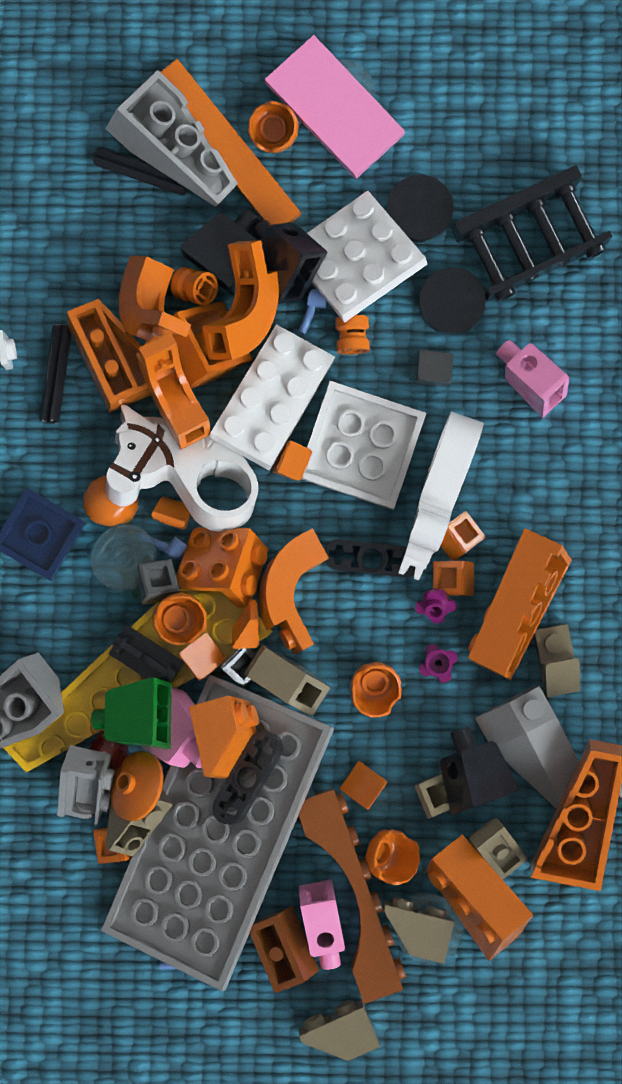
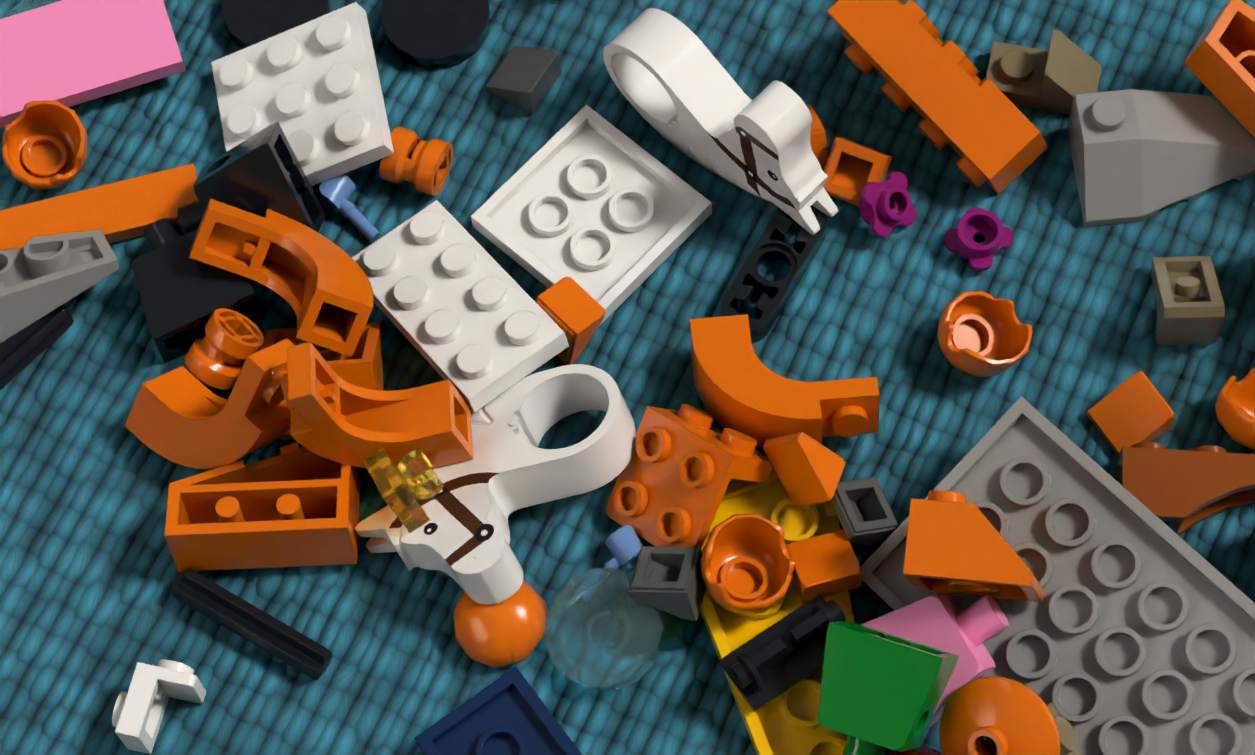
camera: 60 degrees left, 20 degrees down
(142, 419) = (405, 484): none -> clear yellow tile
(171, 513) = (568, 532): orange slope -> none
(251, 750) = (1037, 512): black beam -> none
(287, 680) = (917, 446): dark tan slope -> none
(475, 773) = (1174, 238): black torso -> none

